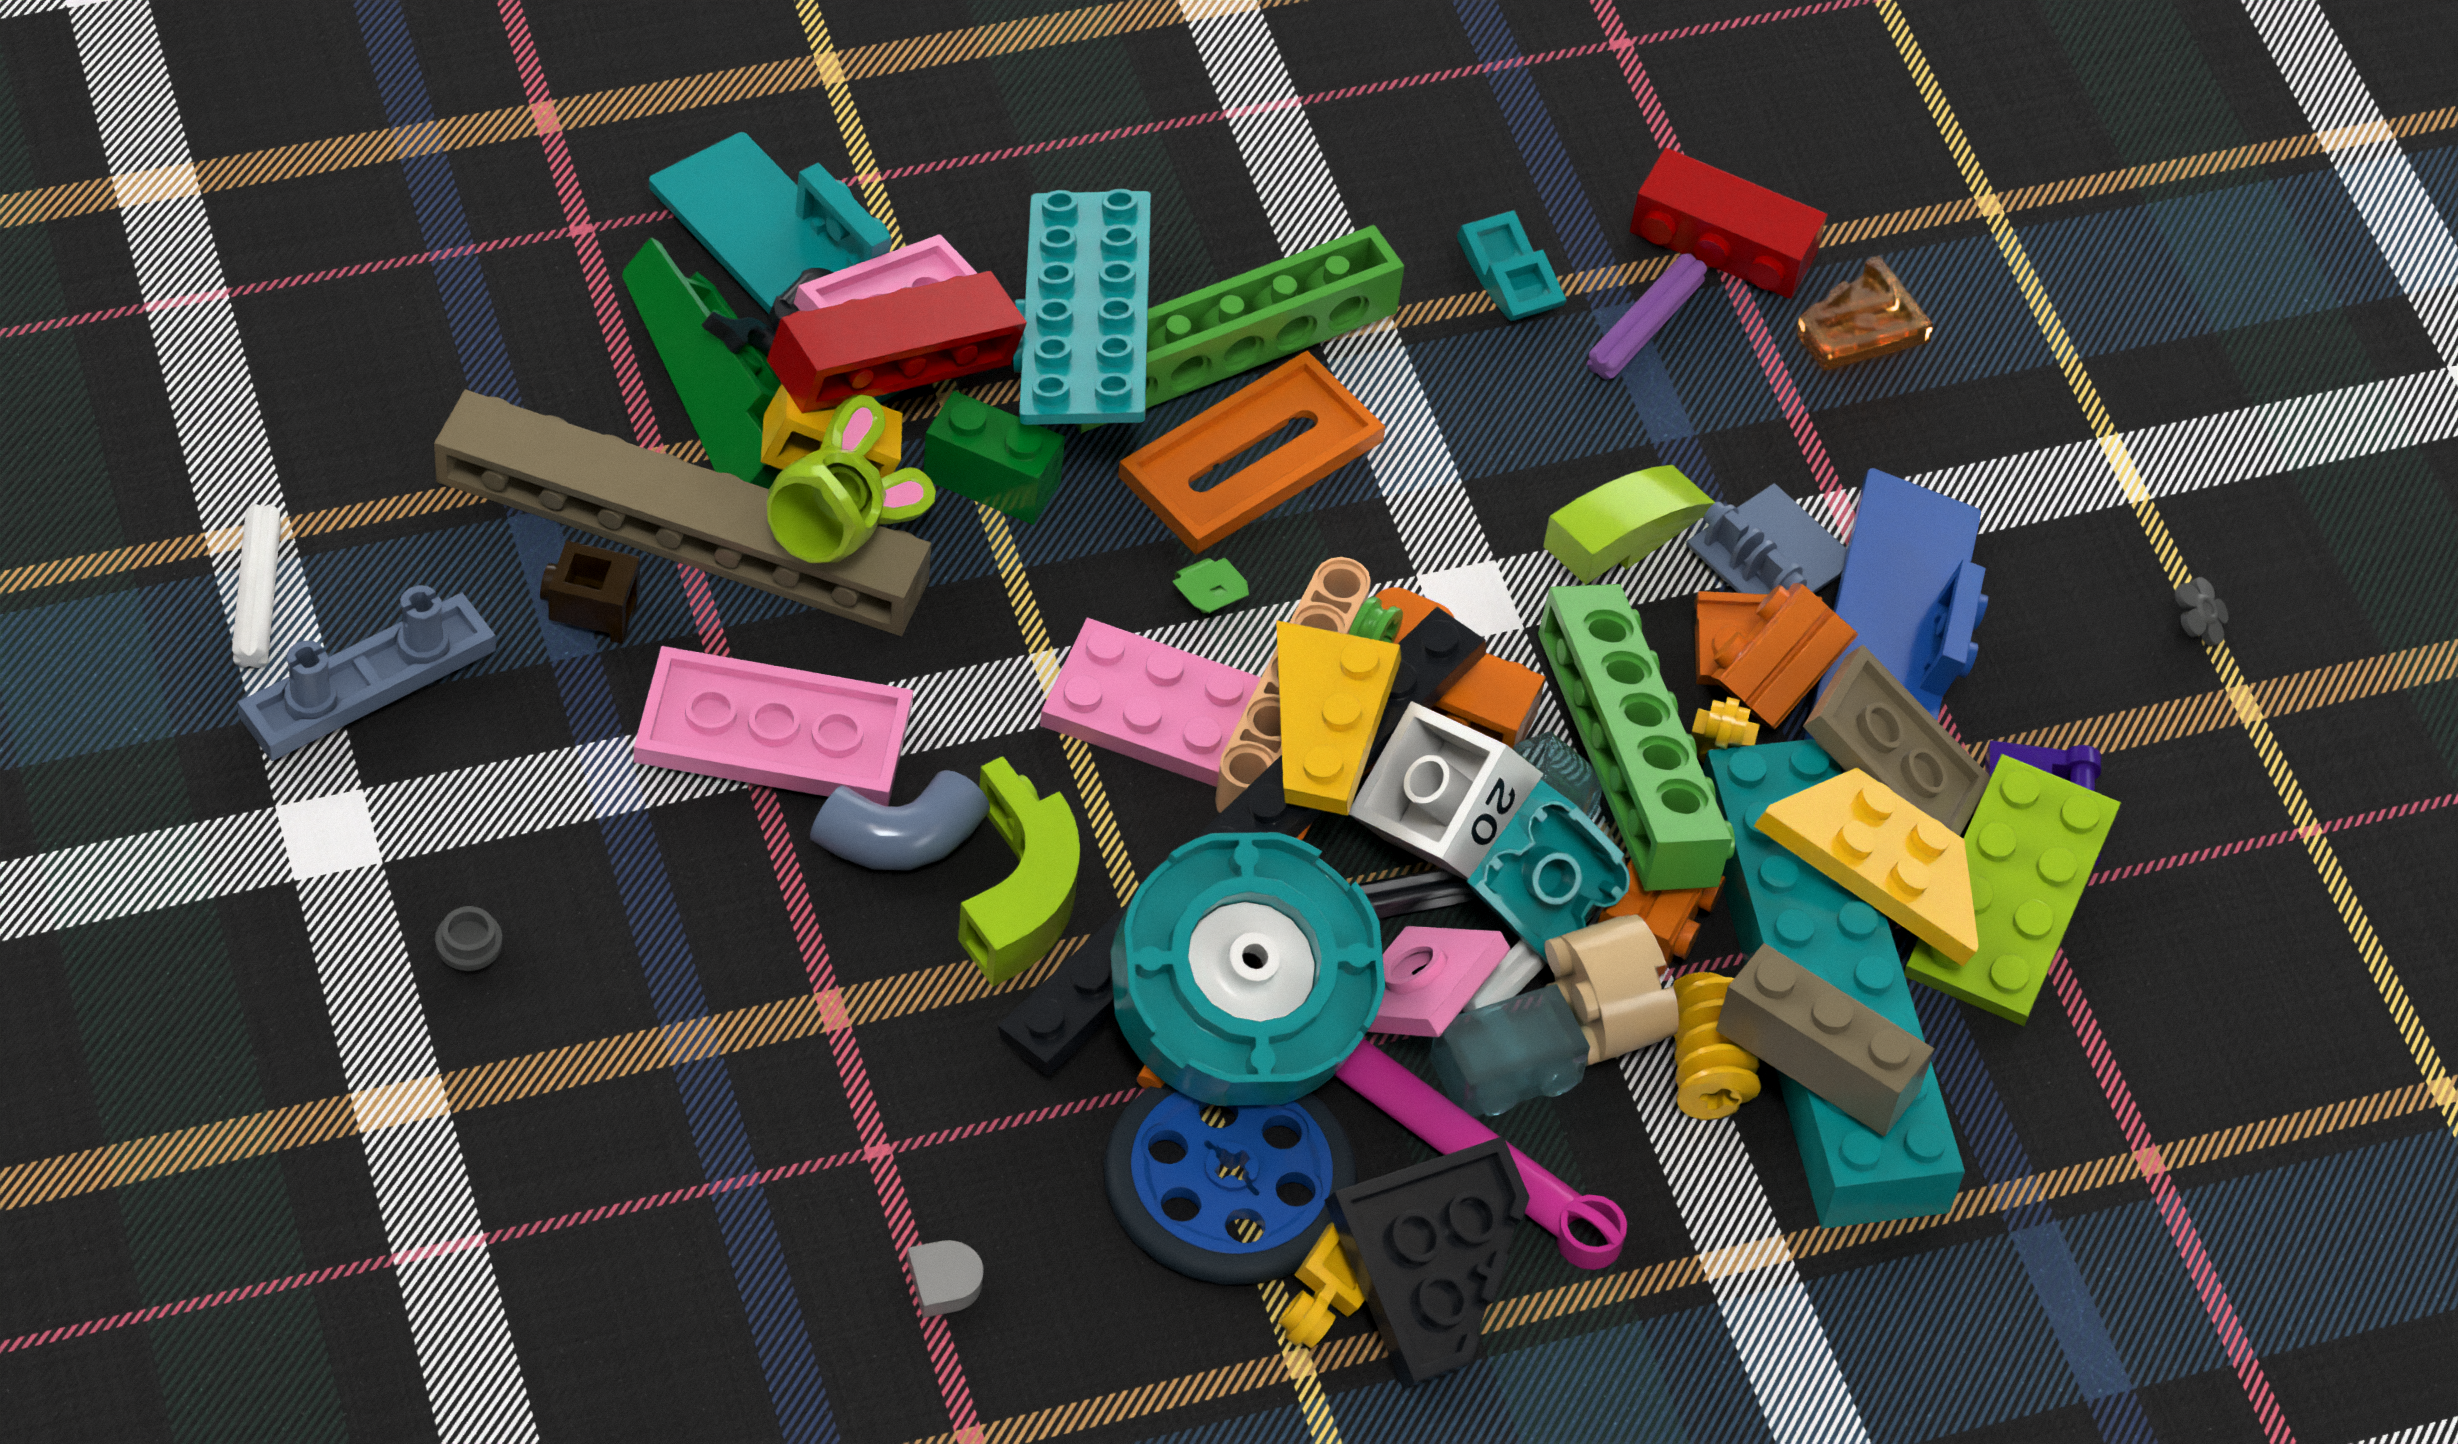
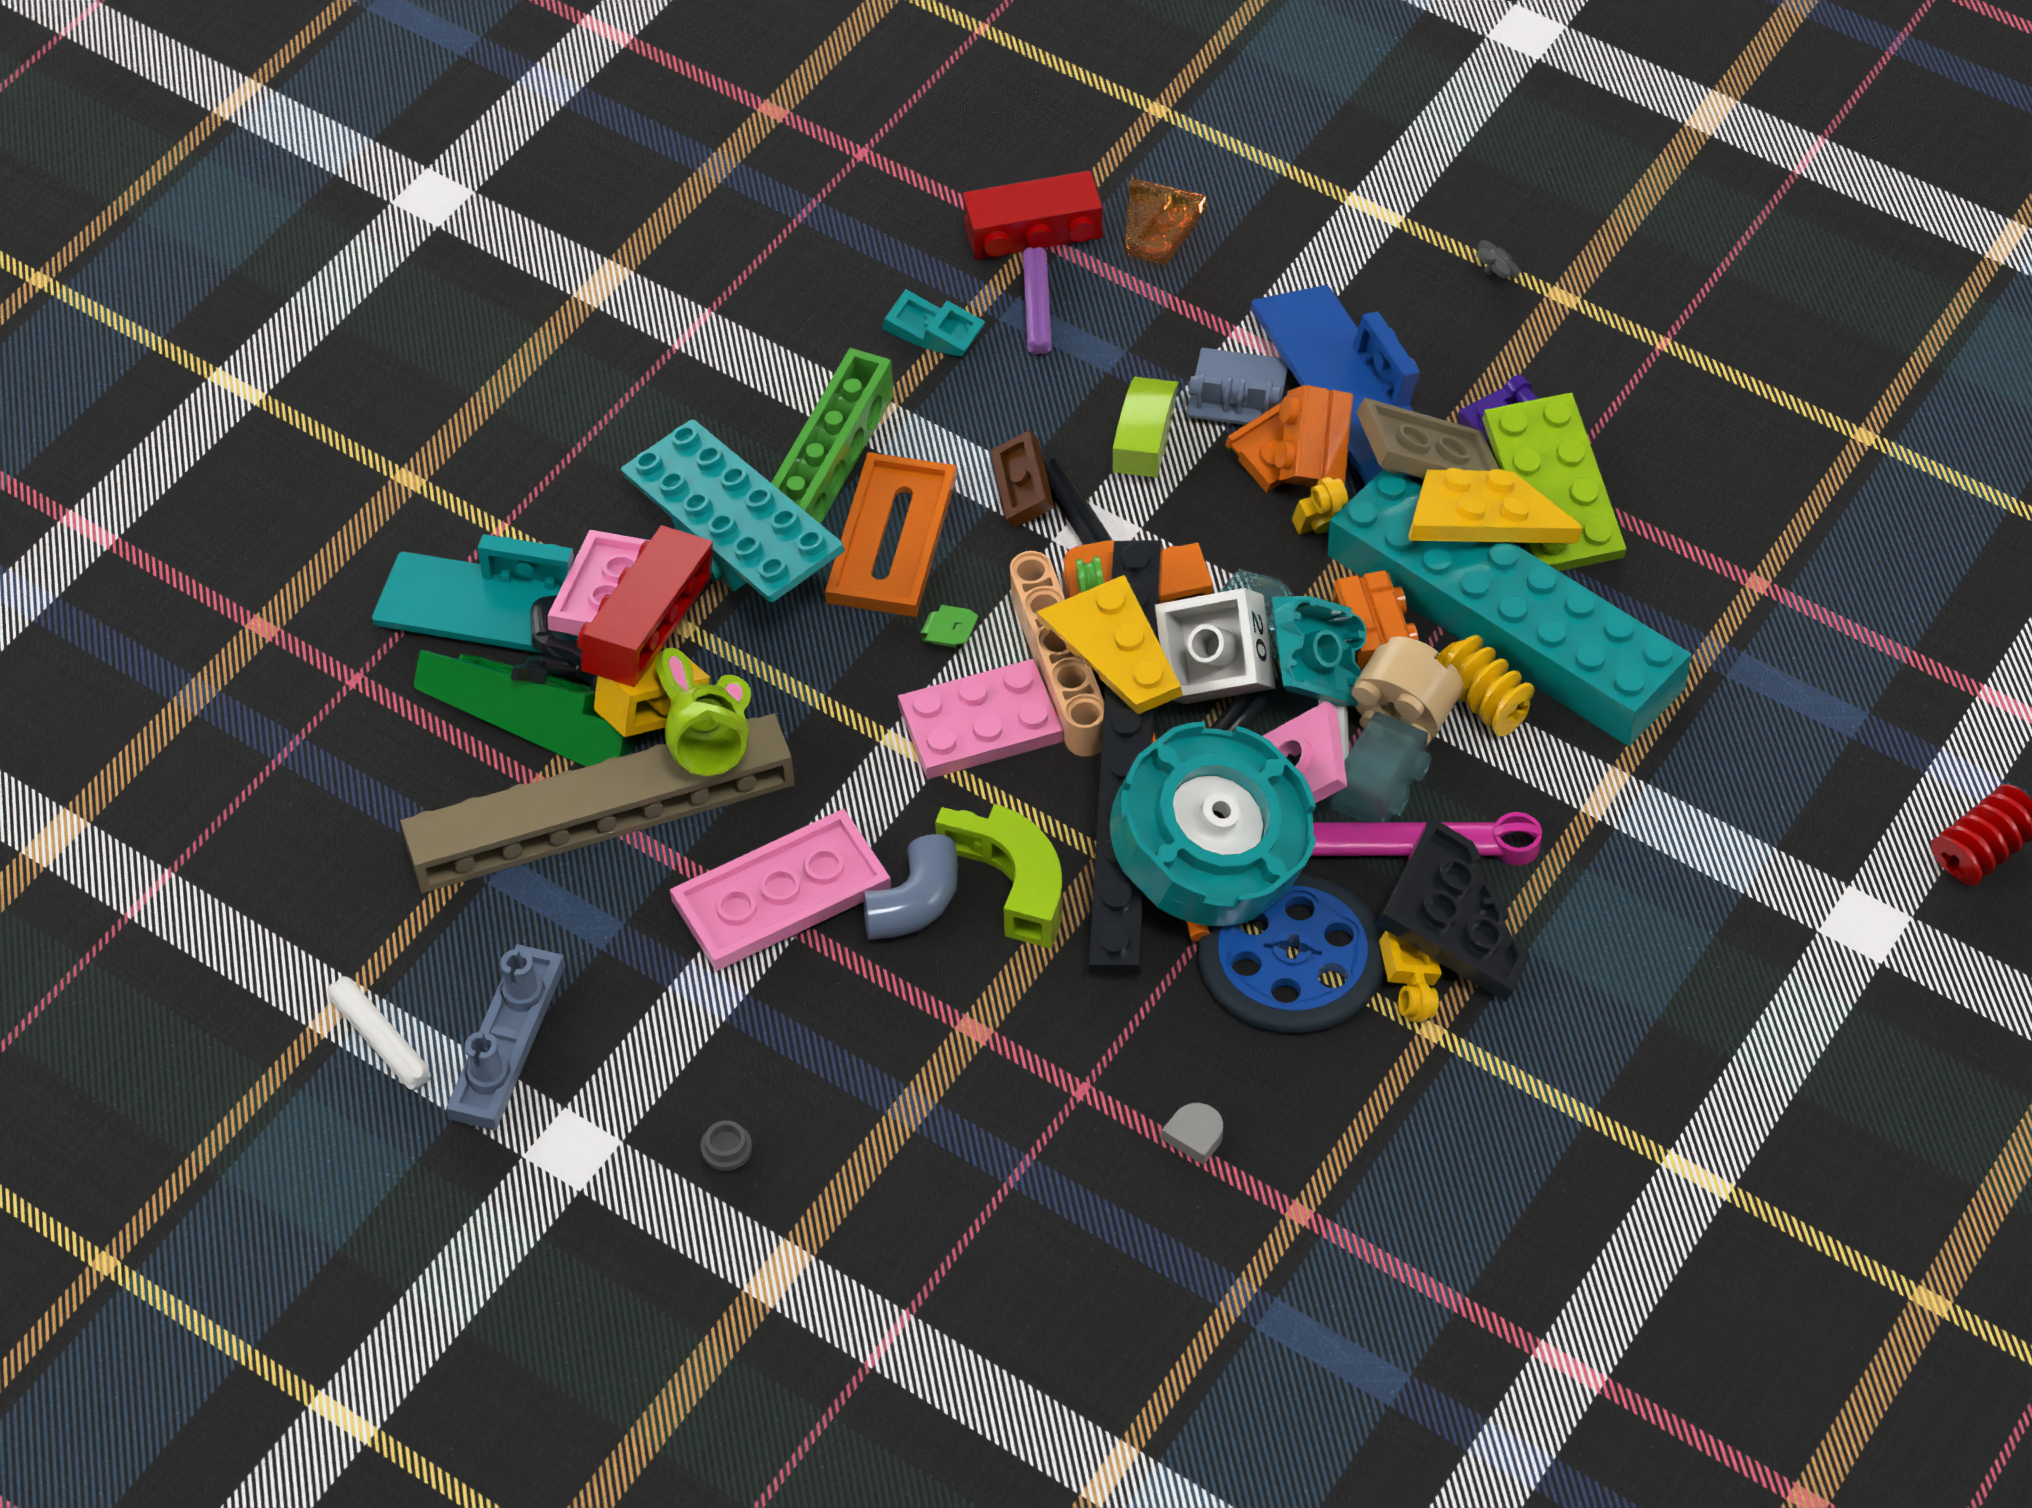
camera: 30 degrees left, 0 degrees up
(593, 589) = (593, 885): dark brown brick -> none
(993, 457) = (753, 639): green brick -> none
(1438, 487) = (1022, 479): none -> reddish brown plate
(1470, 553) = (1074, 504): none -> black axle
(1635, 738) = (1282, 541): bright green brick -> none
(1824, 1039) = (1564, 631): dark tan brick -> none

